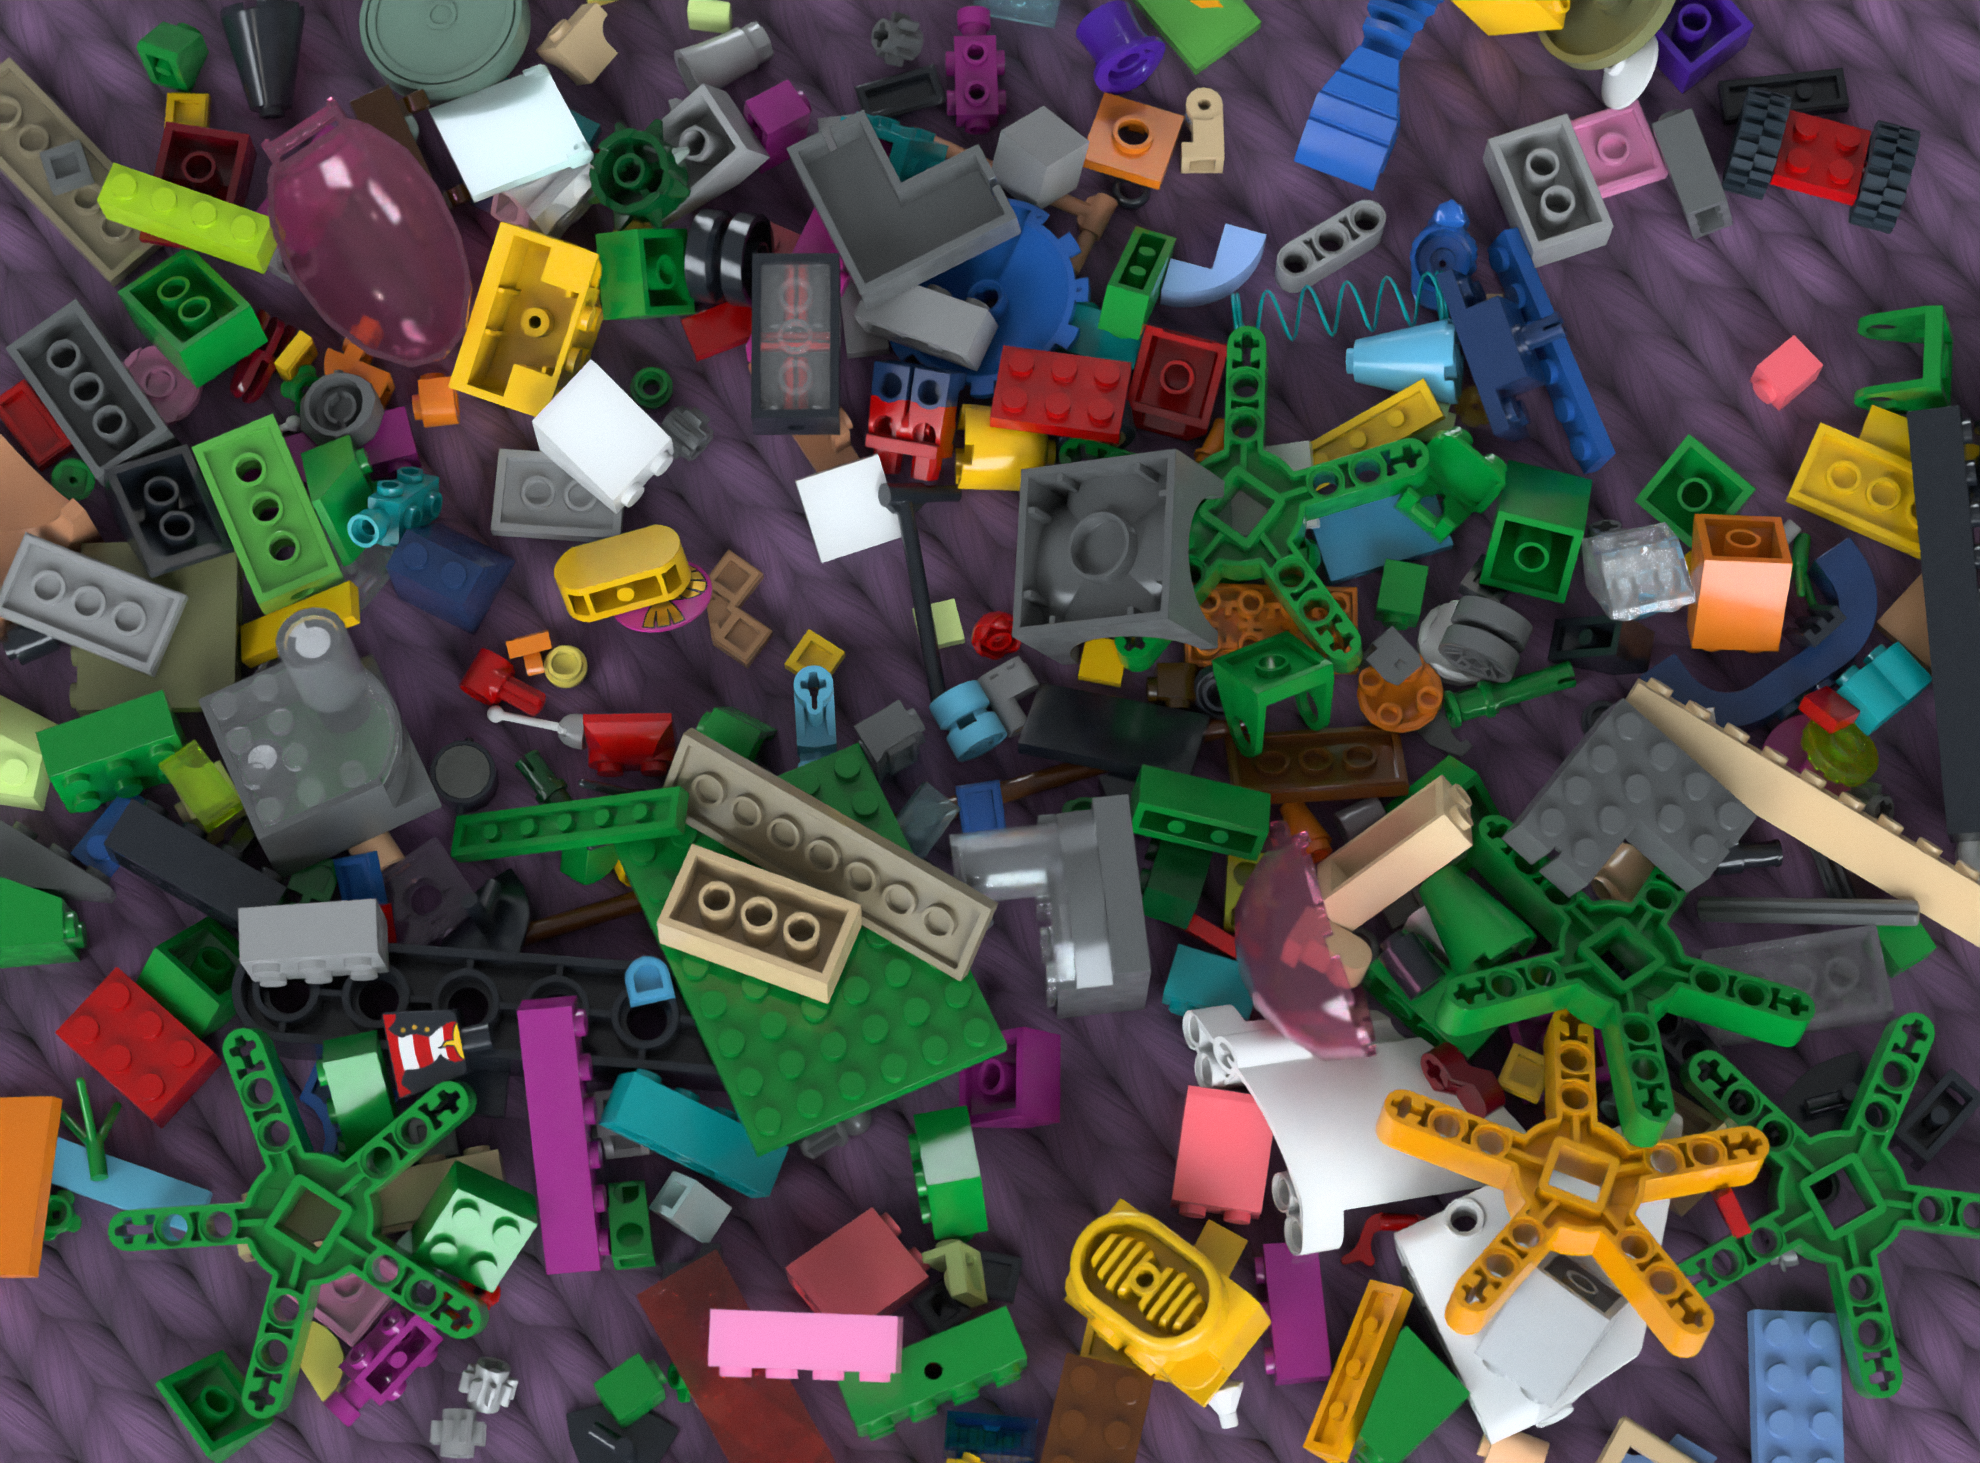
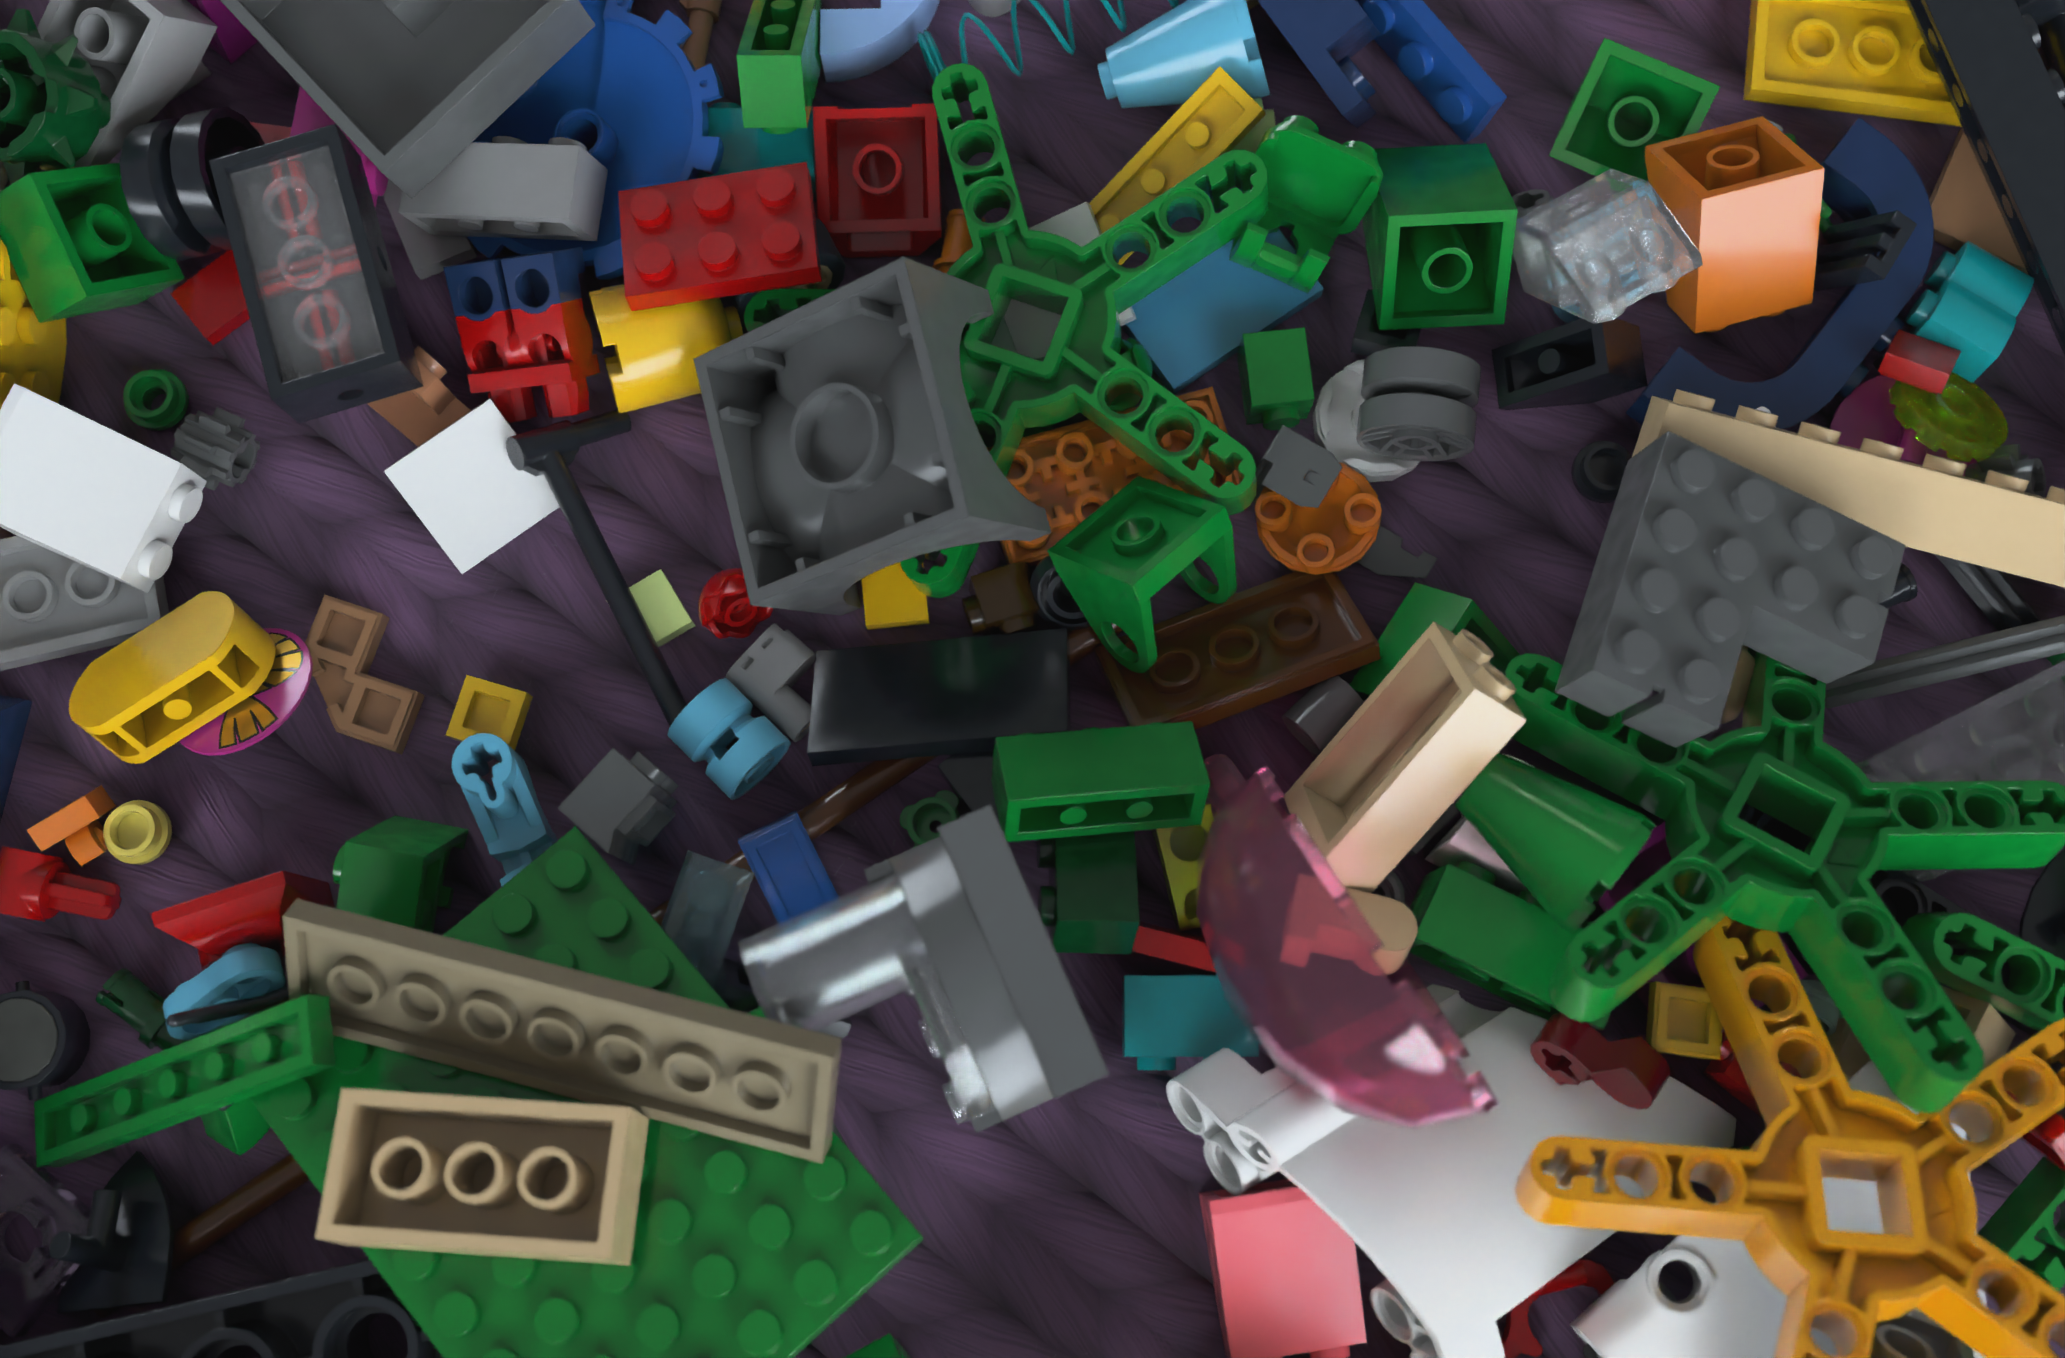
camera: 15 degrees left, 5 degrees up
(569, 729) = (57, 930): hinge -> none
(619, 770) = (239, 974): none -> medium azure plate
(648, 981) = (352, 1300): dark azure tile -> none
(1016, 1085) = (967, 1252): magenta slope -> none
(1301, 819) = (1249, 747): orange cone -> none
(1410, 964) = (1481, 920): black brick -> none
(1464, 408) = (1297, 78): clear yellow plate -> none
(1488, 698) = (1441, 485): green pin -> none

